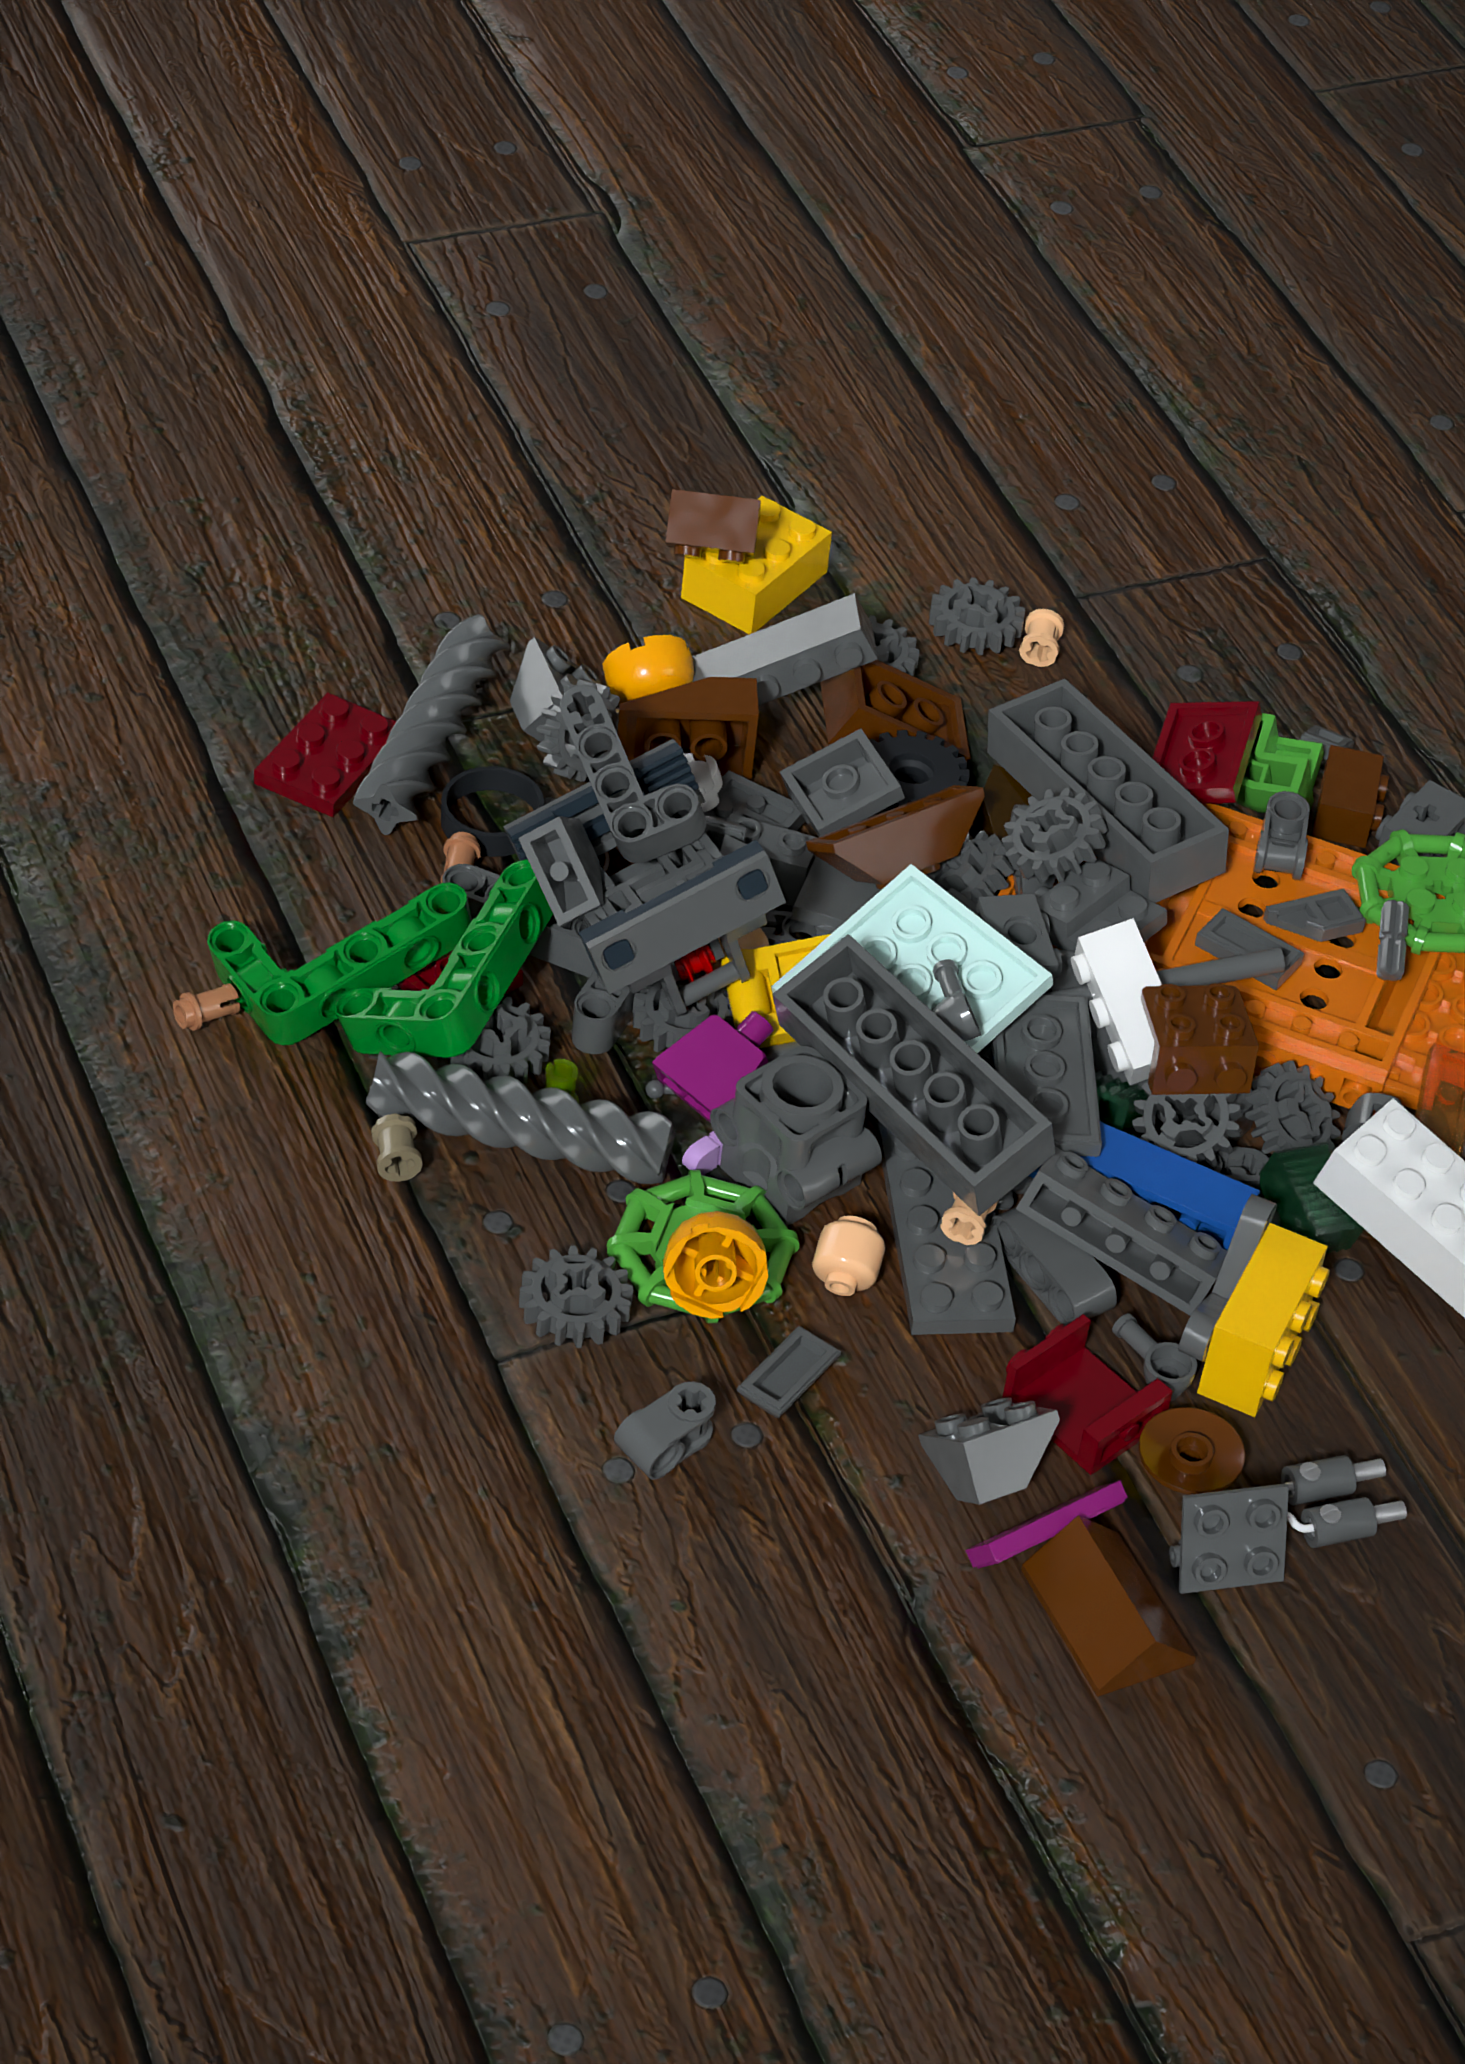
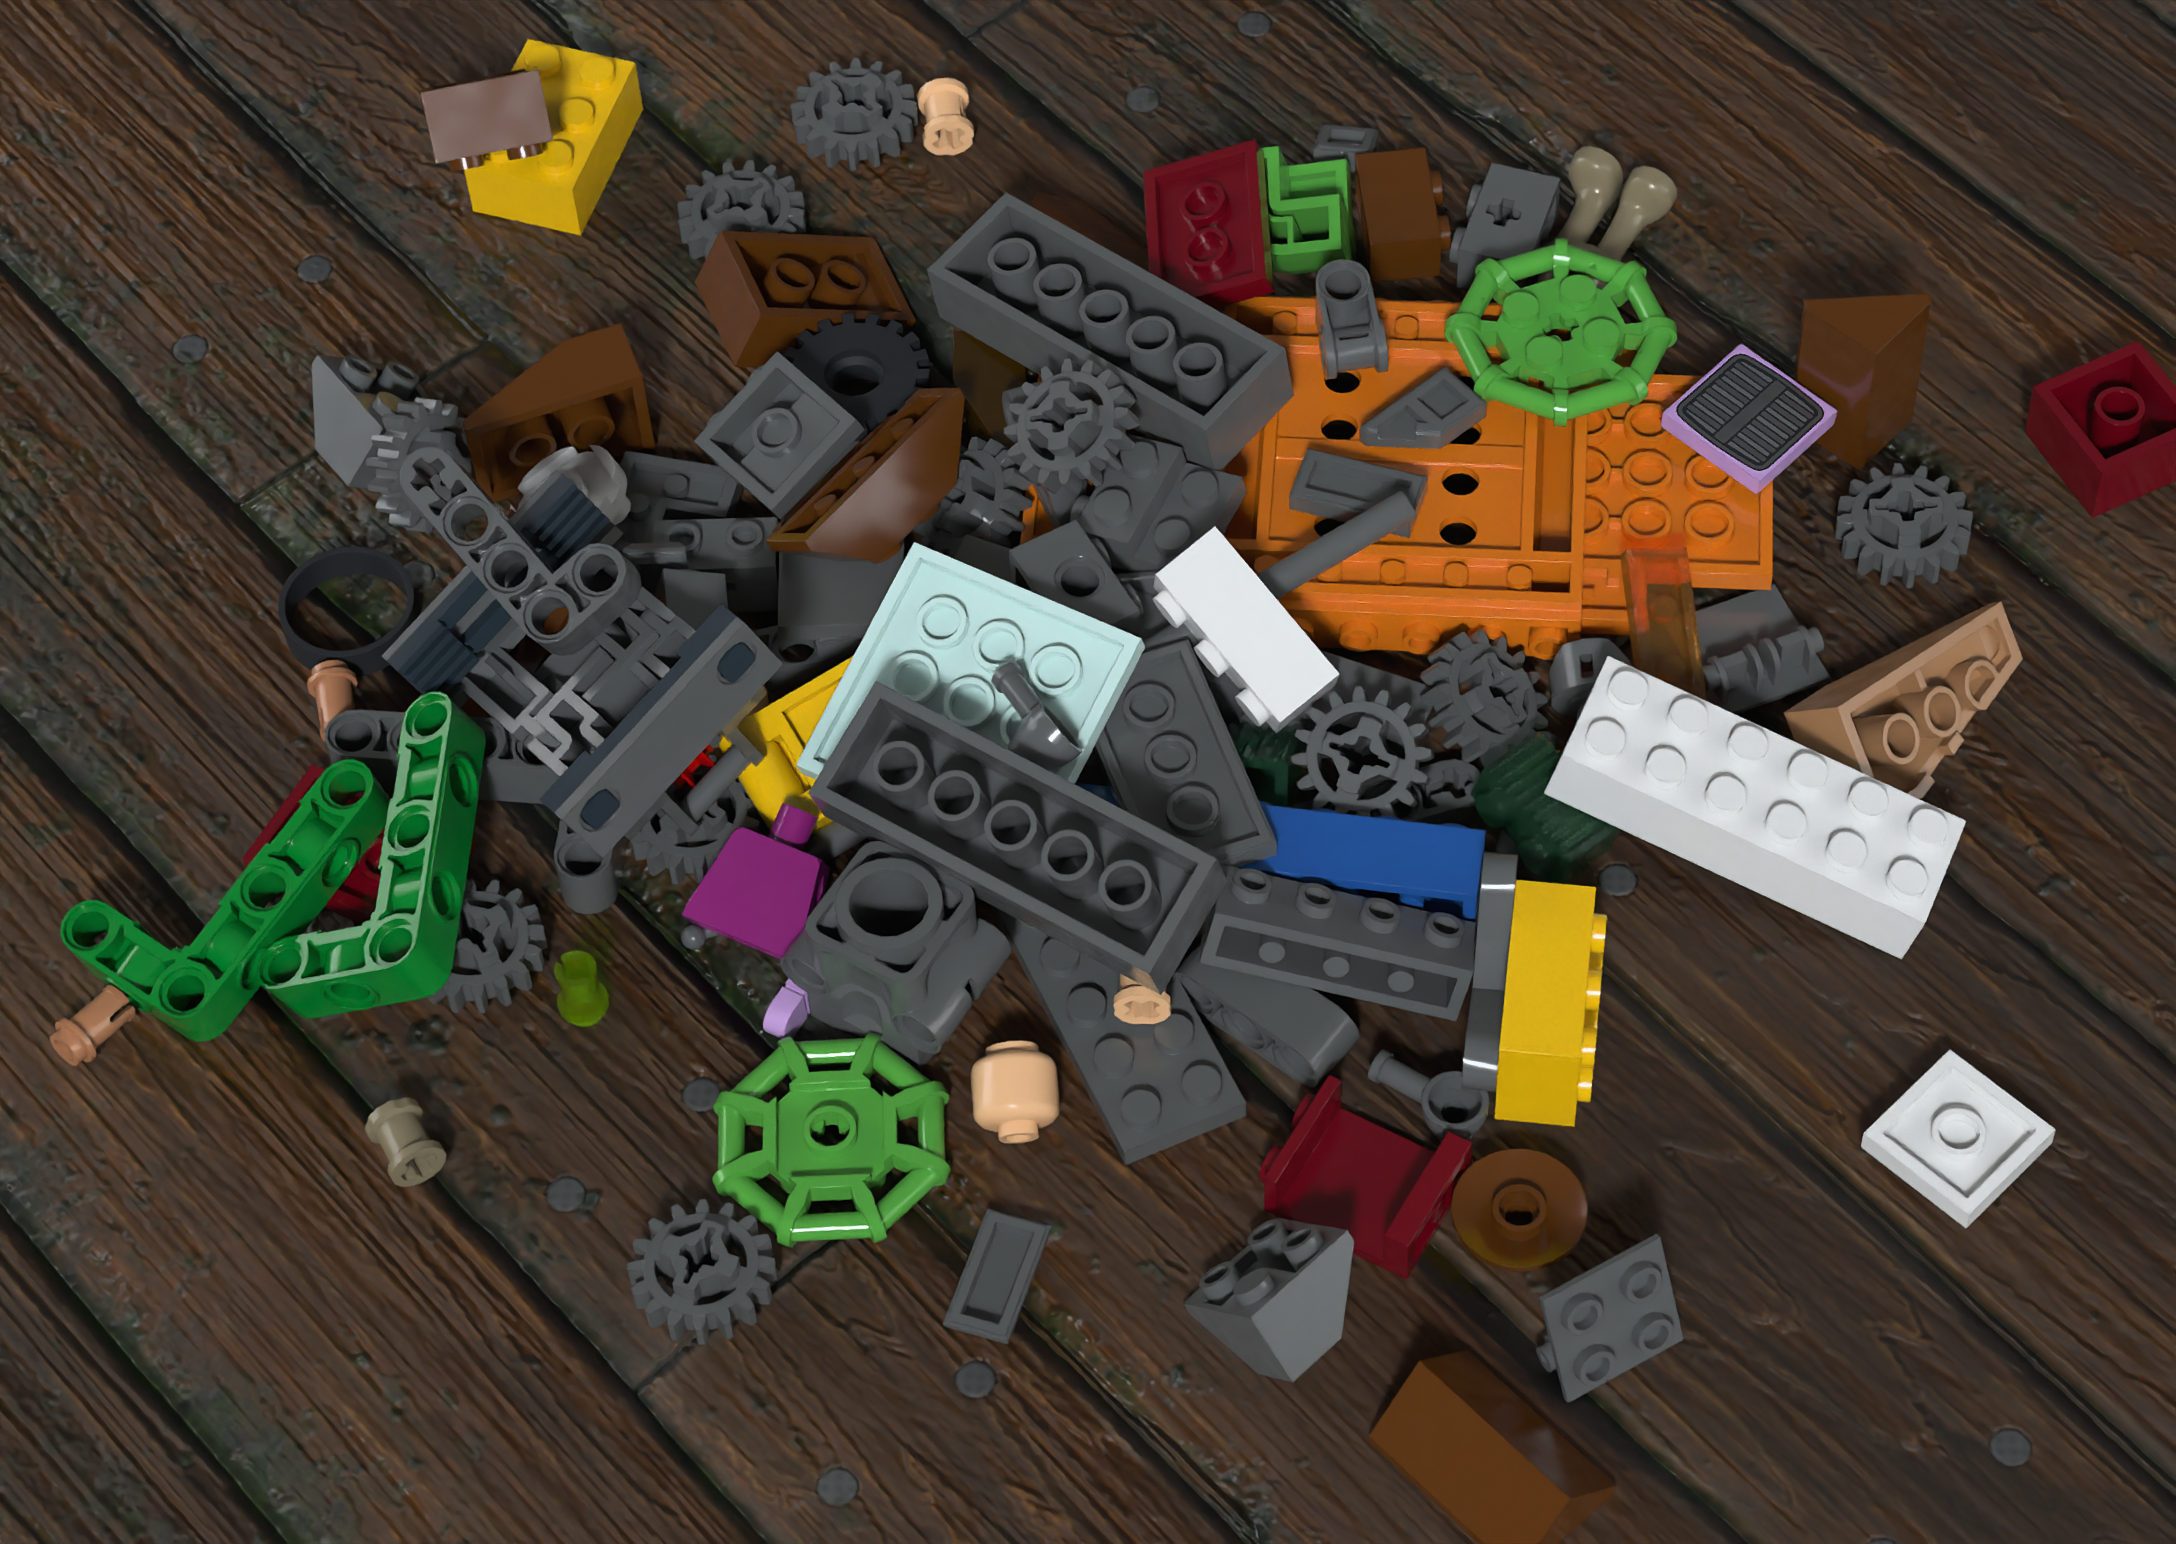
camera: 10 degrees left, 10 degrees up
(325, 755) = (113, 601): dark red plate -> none
(426, 722) = (222, 516): dark grey piece -> none
(507, 1115) = (565, 1045): dark grey piece -> none
(565, 867) = (484, 695): dark grey slope -> none
(648, 668) = (481, 351): light orange cylinder -> none
(668, 1429) = (877, 1425): dark grey piece -> none
(715, 1264) = (862, 1176): light orange cylinder -> none
(796, 650) = (647, 264): brick -> none
(1045, 1525) = (1381, 1376): magenta tile -> none
(1199, 1040) = (1348, 659): reddish brown bracket -> none
(1339, 1520) = (1726, 1235): dark grey piece -> none
(1392, 936) = (1532, 433): dark grey piece -> none

